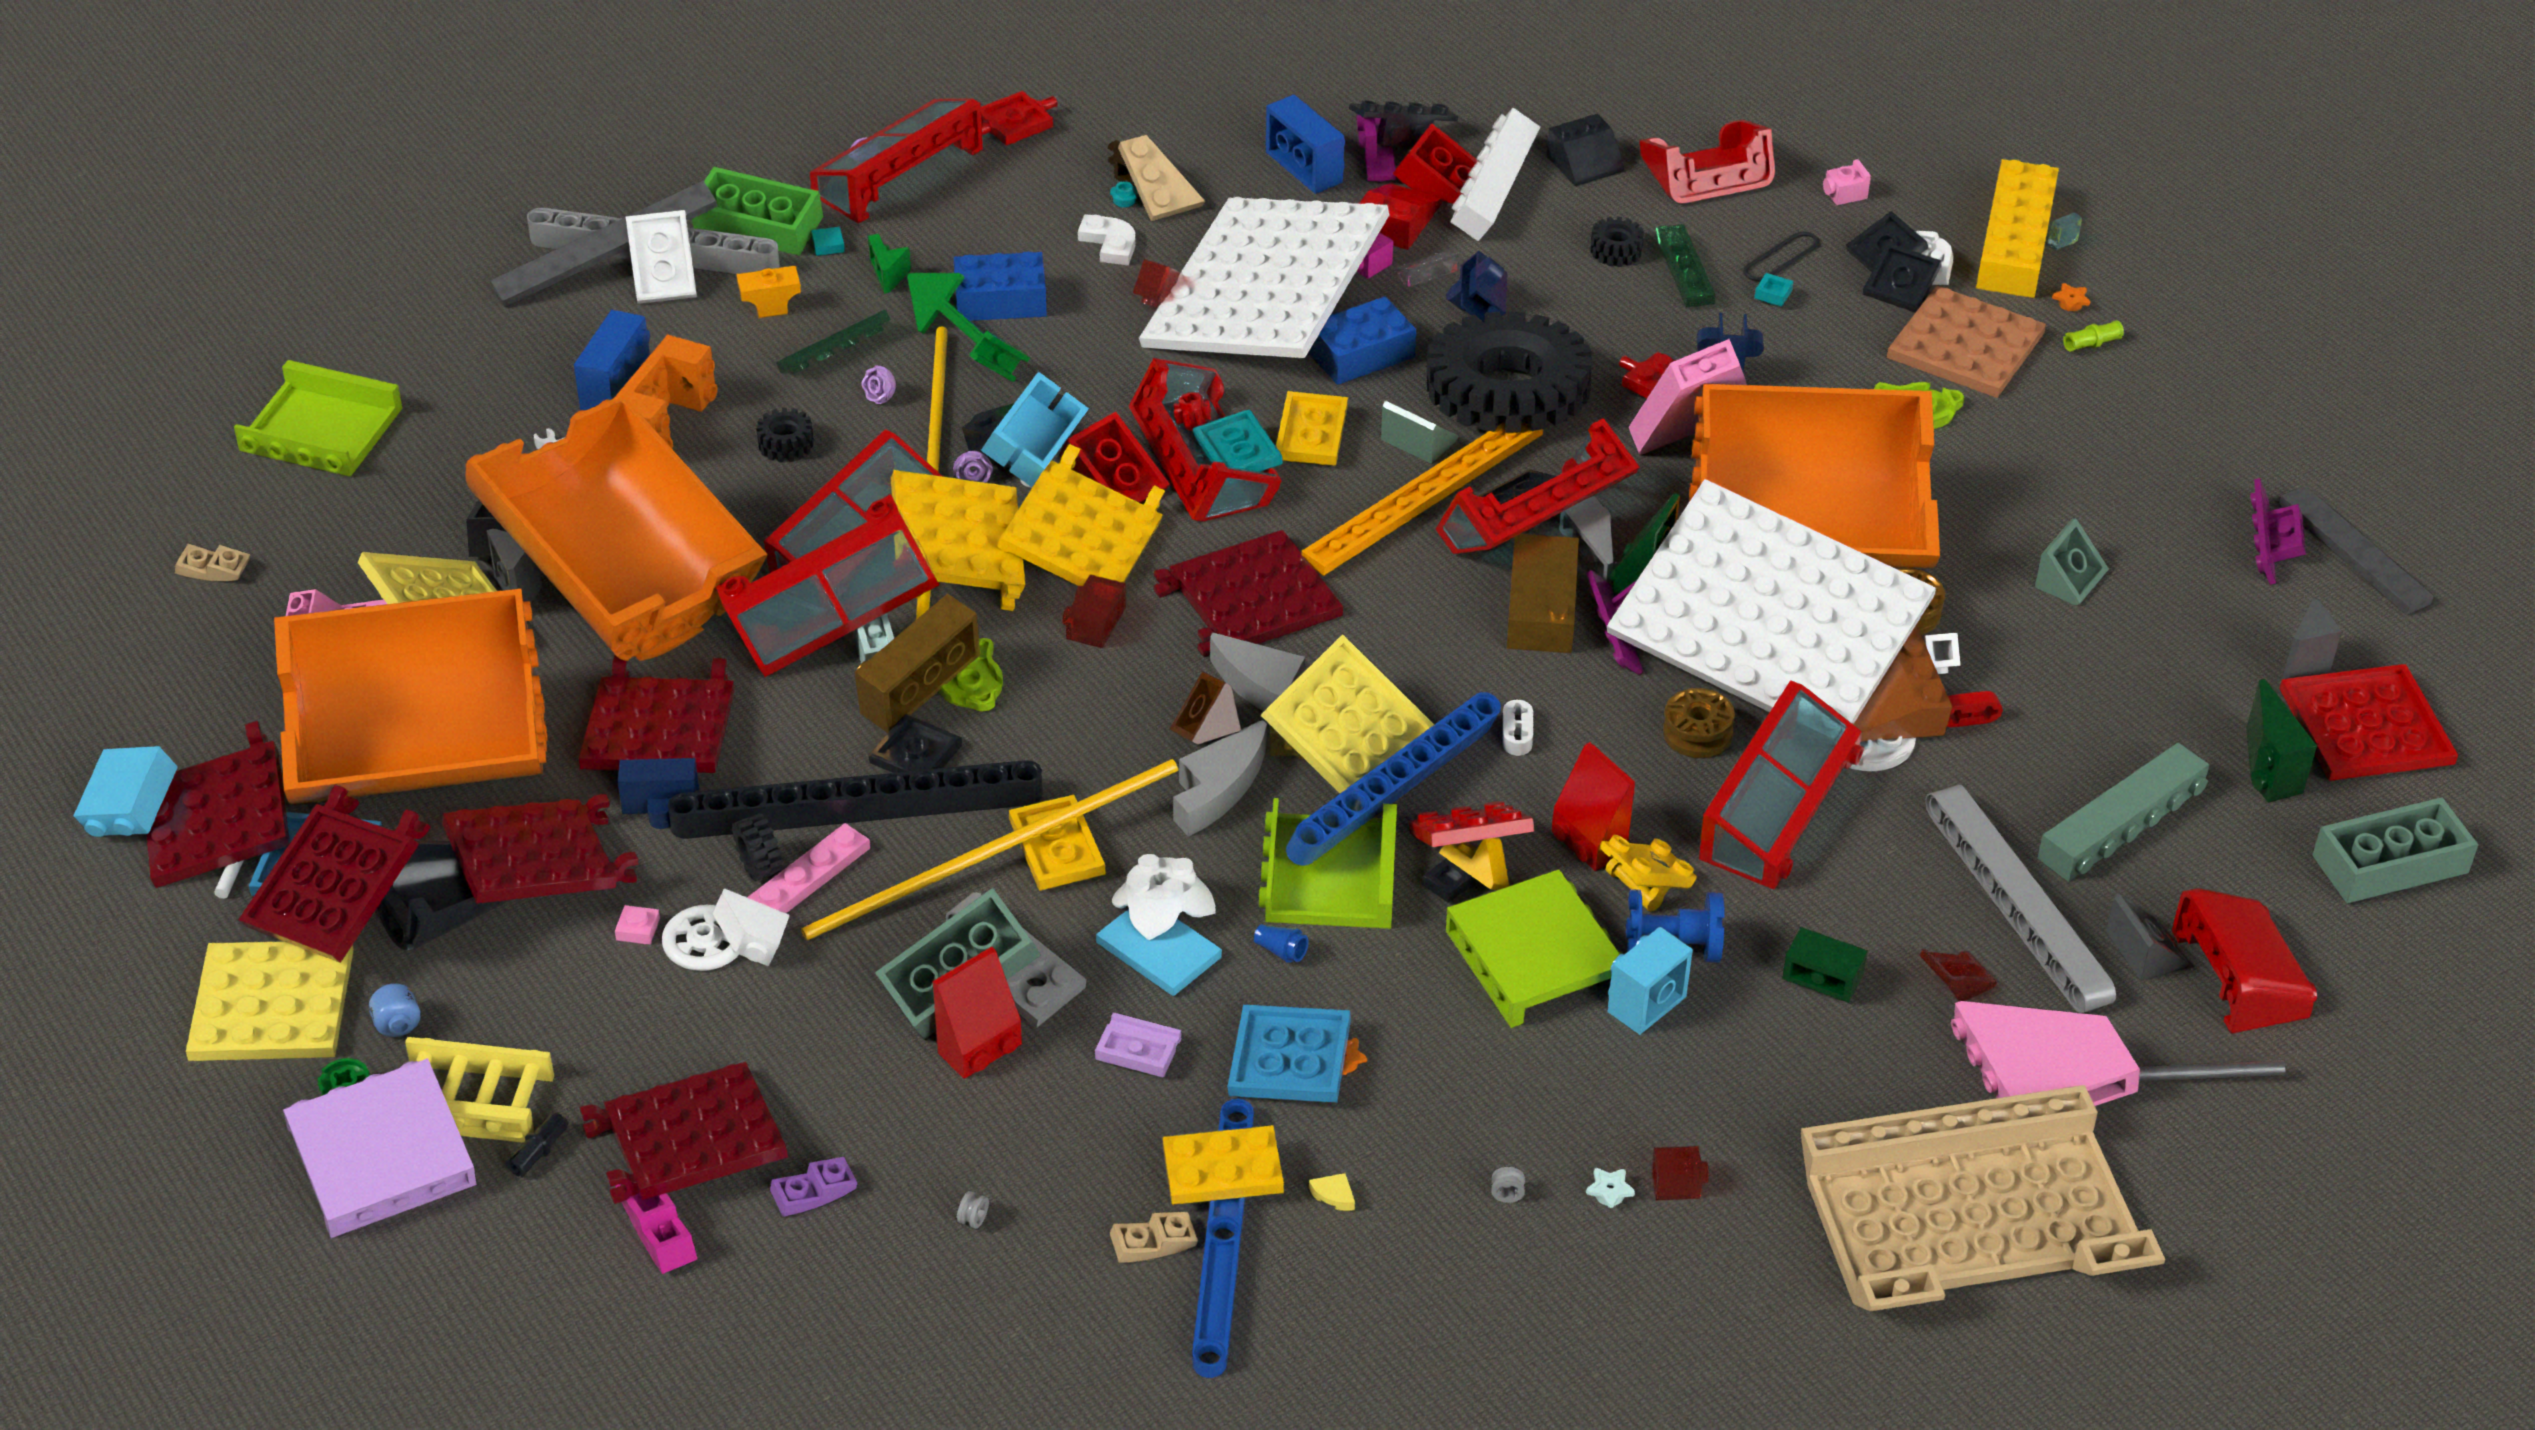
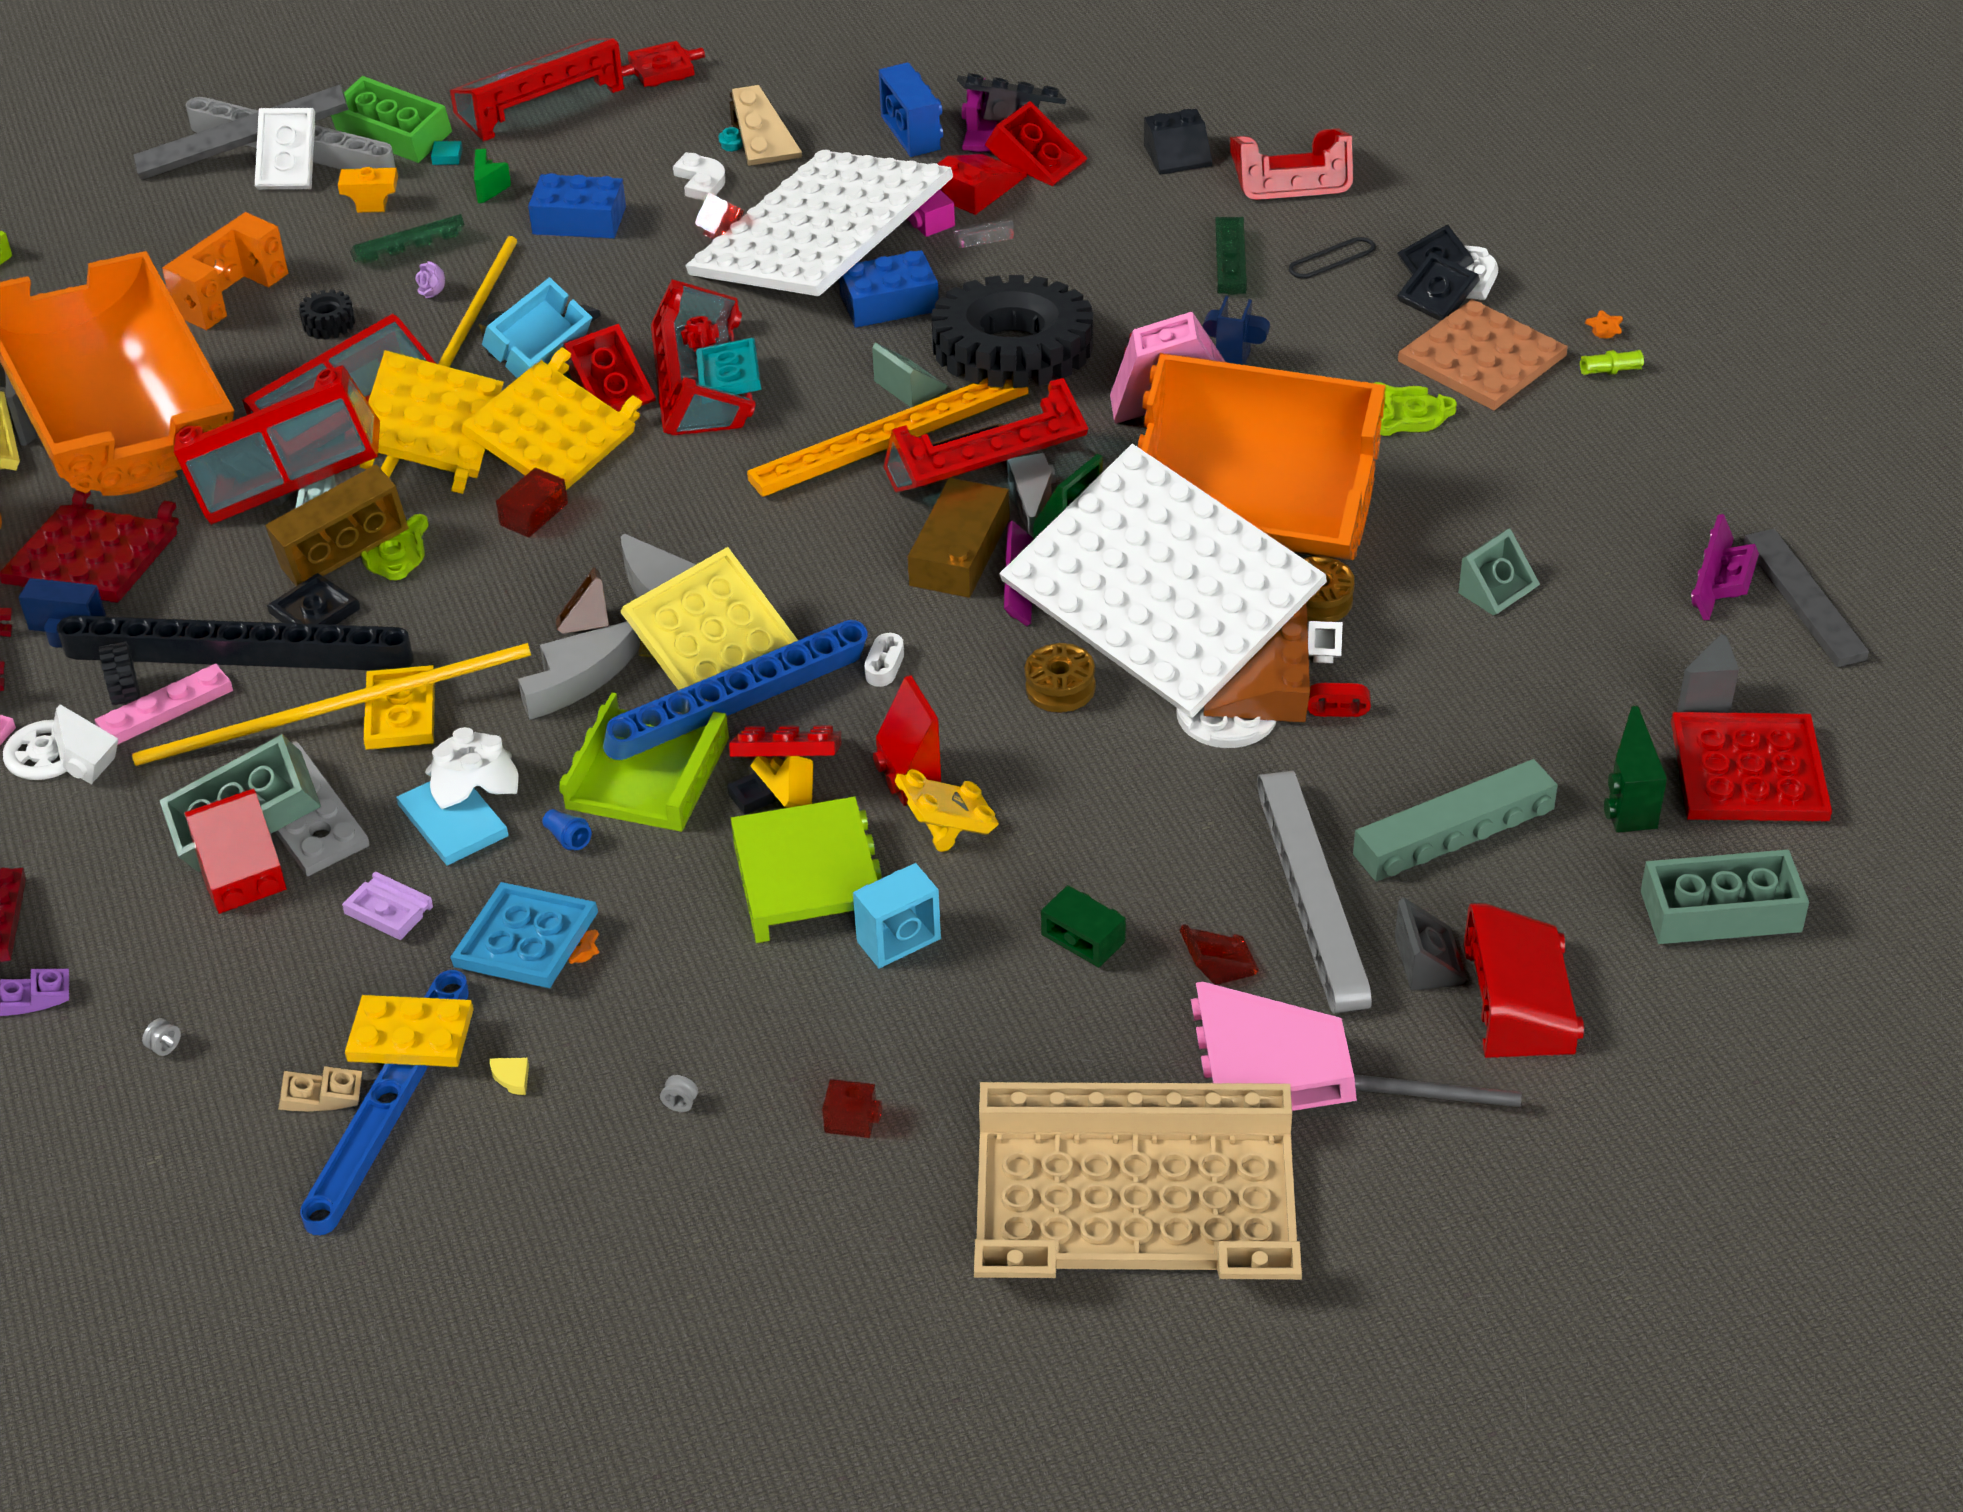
camera: 15 degrees right, 0 degrees up
(611, 358) = (193, 222): blue brick -> none
(931, 296) = (531, 256): green piece -> none
(975, 459) = (478, 352): lavender plate -> none
(1252, 590) = (688, 502): dark red plate -> none
(1312, 428) = (808, 362): yellow plate -> none
(1480, 287) = (1021, 252): dark blue piece -> none
(1494, 173) = (1079, 154): white brick -> none
(1606, 1195) = (784, 1120): light aqua plate -> none
(1617, 241) = (1173, 226): black tyre -> none
(1689, 925) = (958, 868): blue piece -> none
(1774, 289) = (1308, 285): teal plate -> none
(1778, 787) = (1103, 745): windscreen -> none
(1847, 183) = (1420, 197): bright pink brick -> none
(2017, 228) = (1573, 254): yellow brick -> none
(2065, 231) = (1621, 262): clear light blue plate -> none

